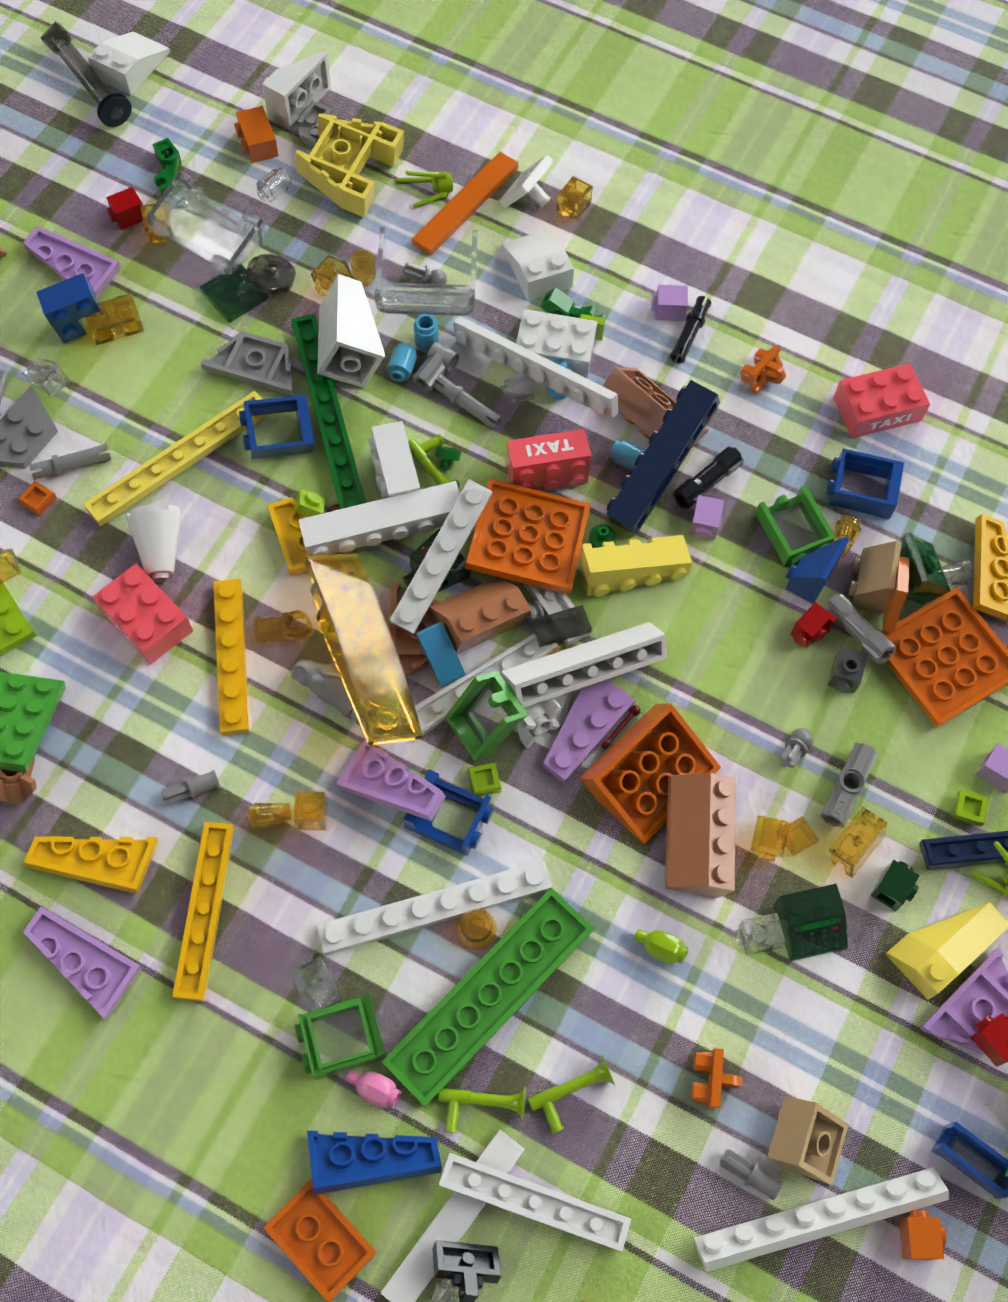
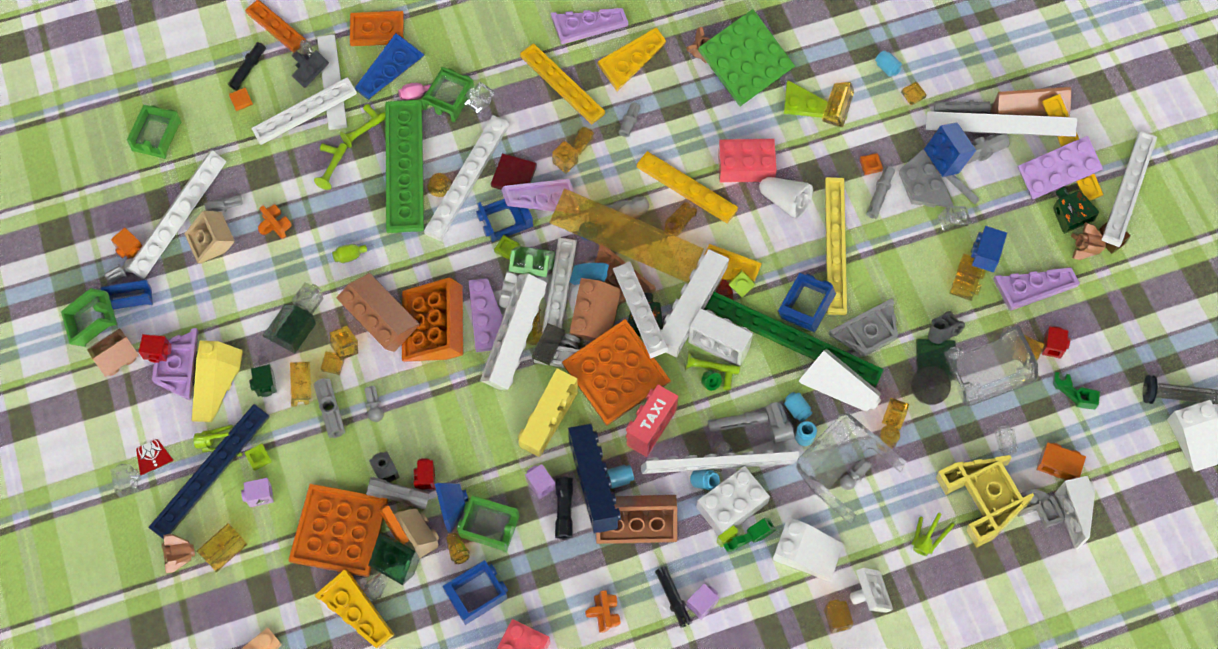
camera: 135 degrees right, 0 degrees up
(194, 299) = (945, 328): none -> dark grey piece
(384, 855) = (513, 171): none -> dark red tile
(465, 203) = (896, 550): orange tile -> none
(600, 534) = (583, 417): green tile -> none
(634, 711) = (471, 347): dark red hinge -> none
(958, 1209) = (119, 271): none -> light grey axle

